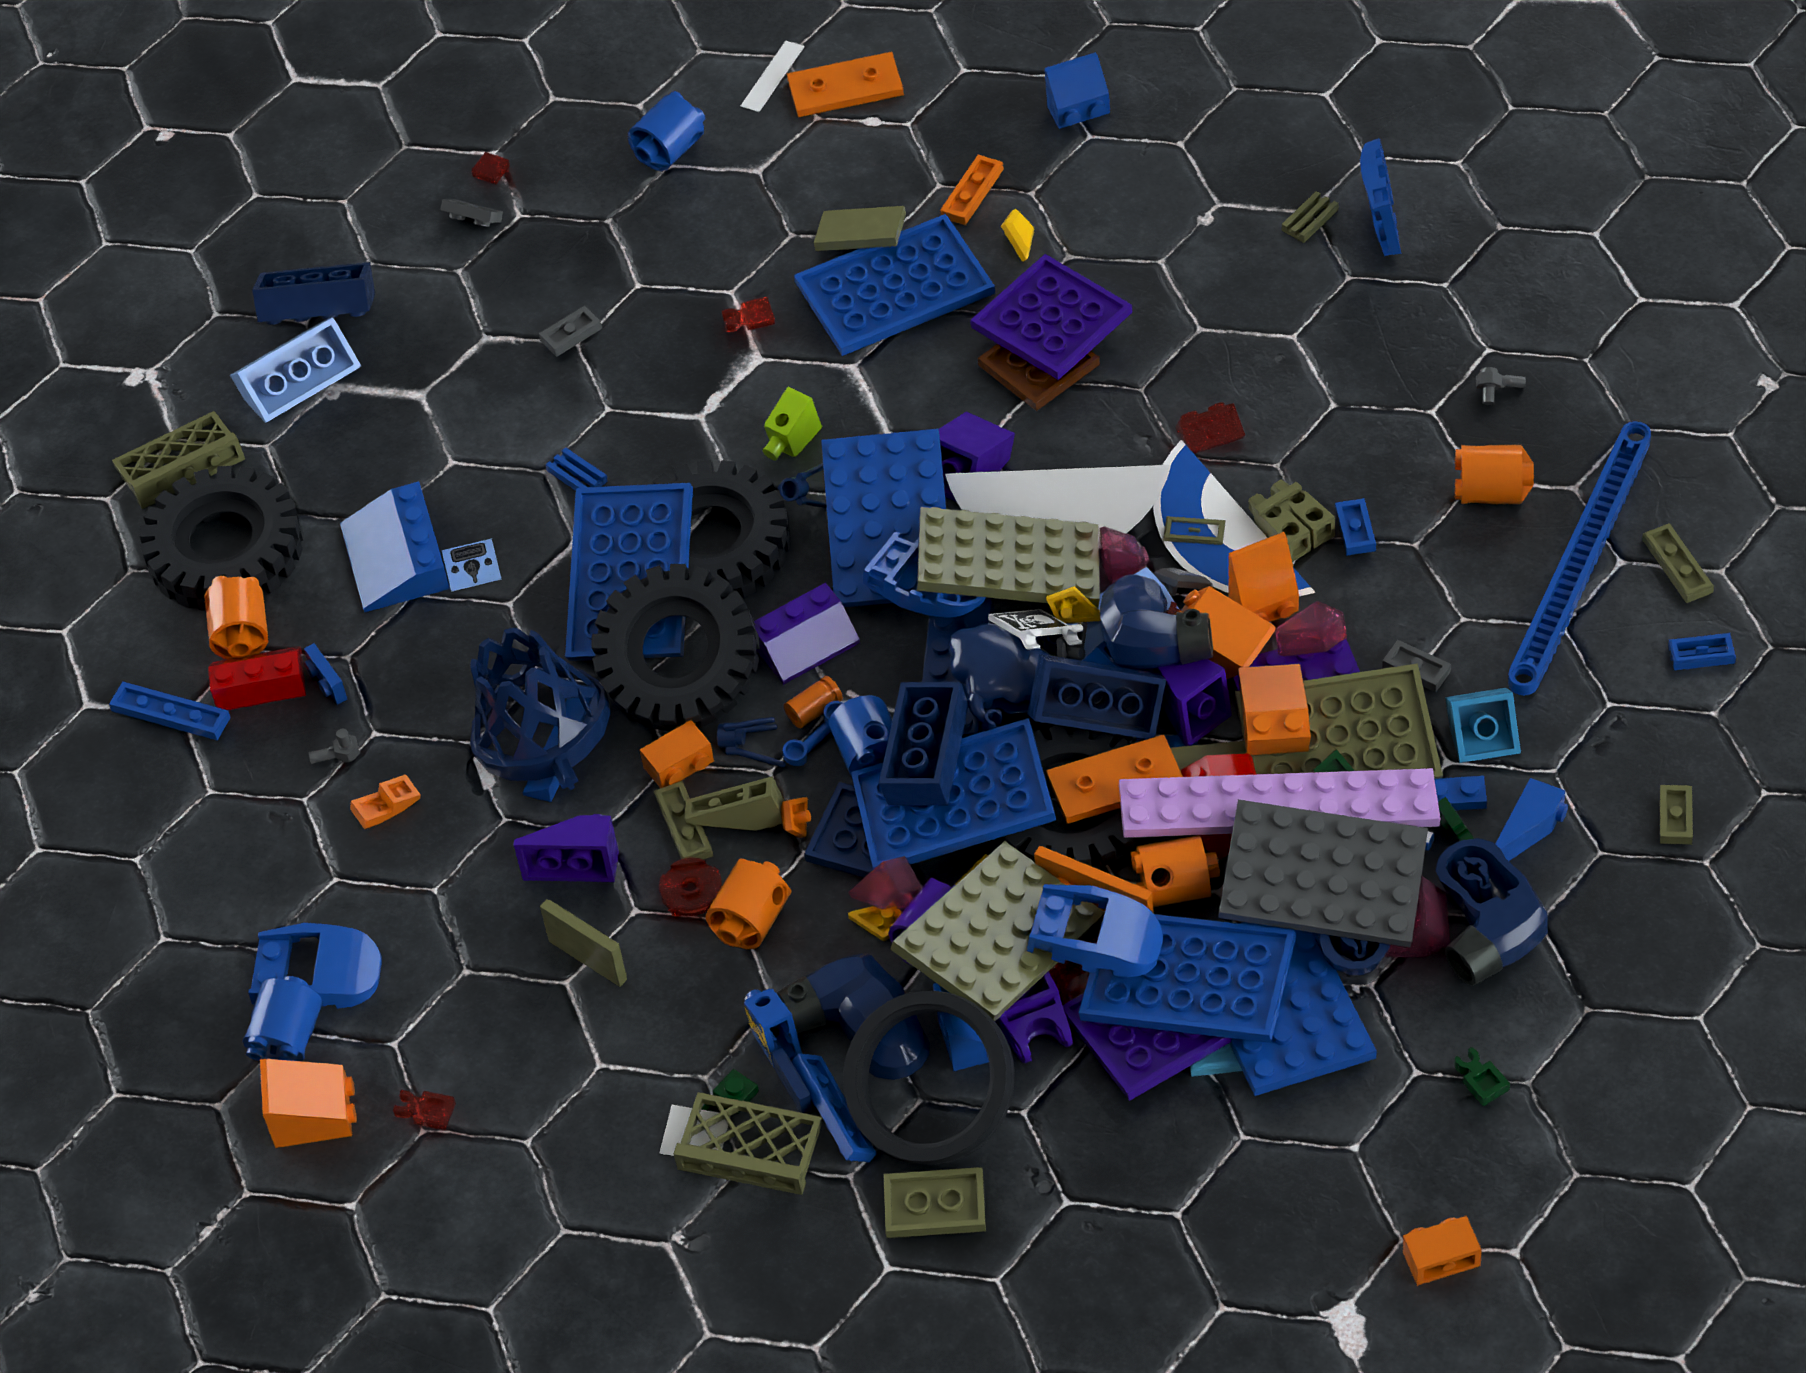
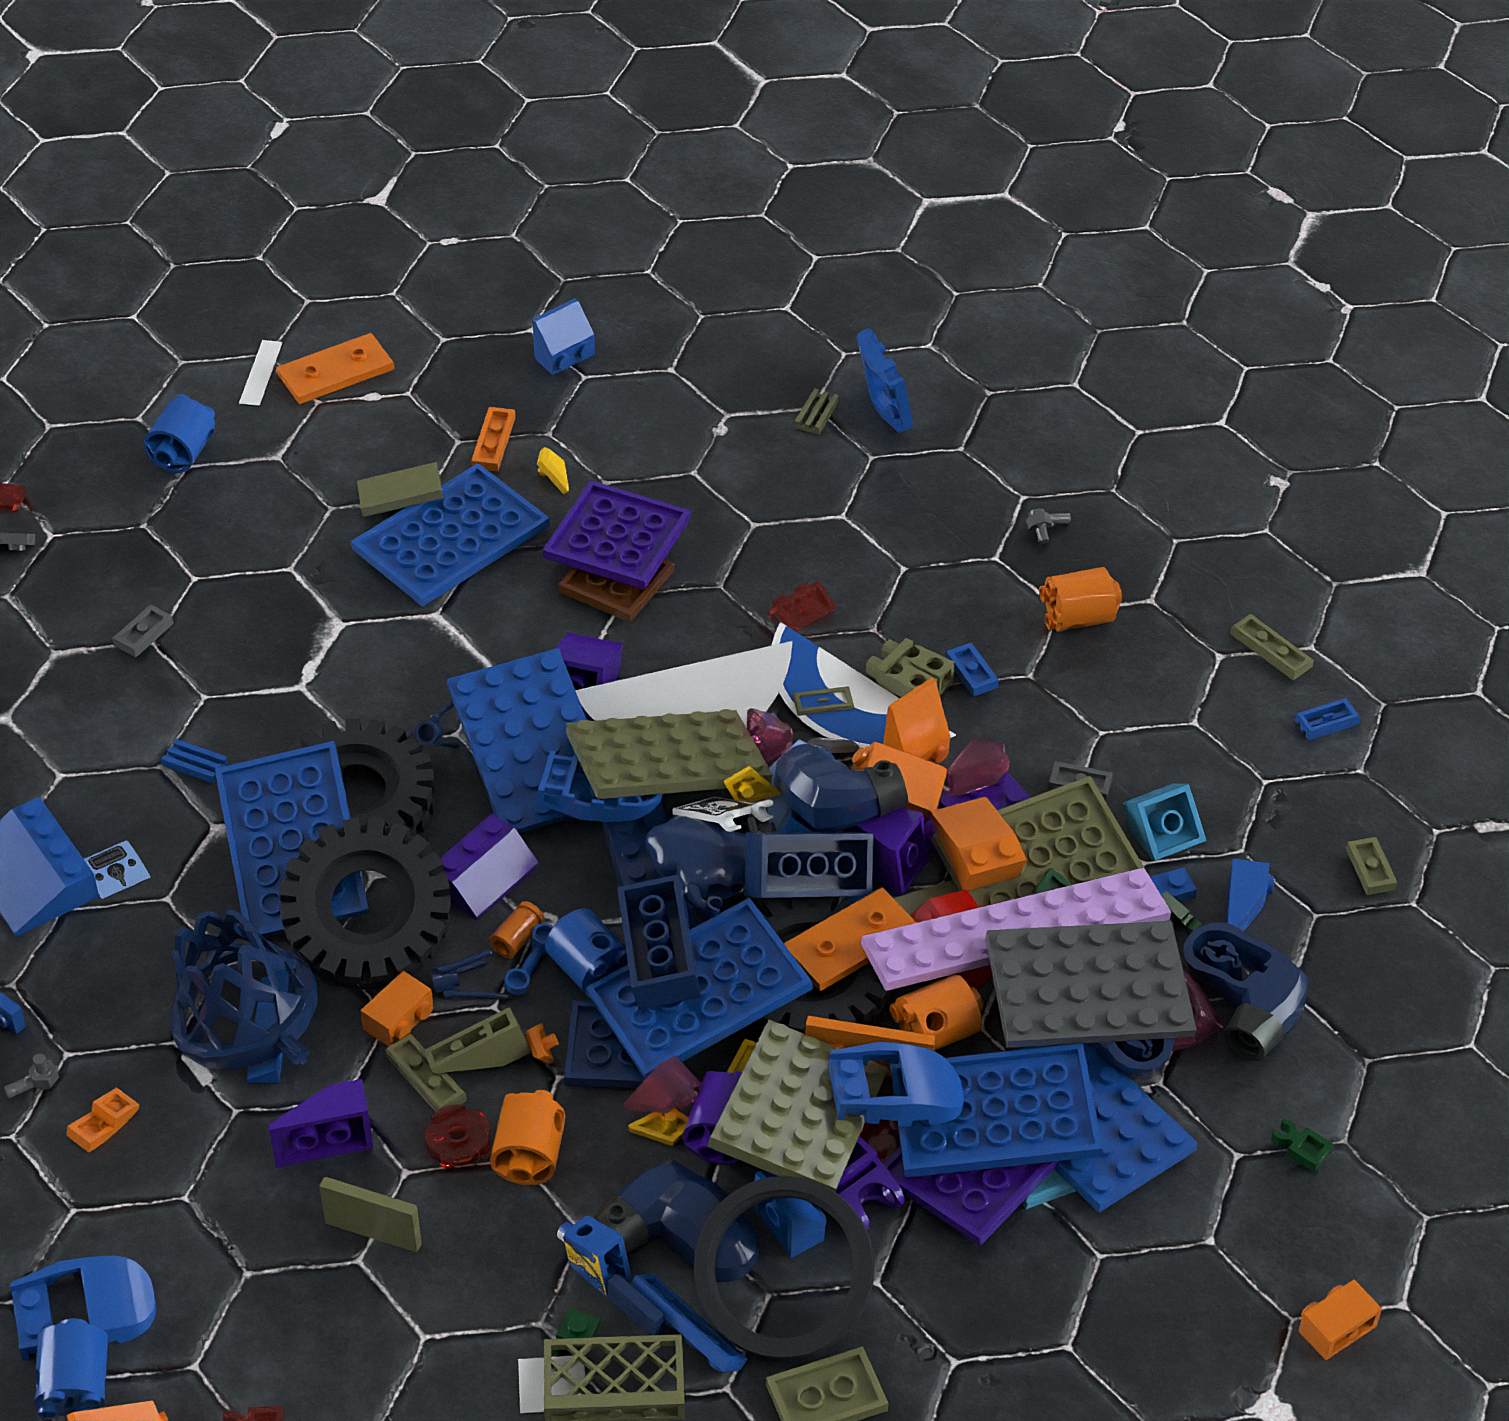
camera: 25 degrees left, 5 degrees down
(753, 314) = (320, 583): clear red plate -> none
(791, 424) = (400, 675): lime torso -> none
(1579, 559) = (1186, 660): blue gear -> none

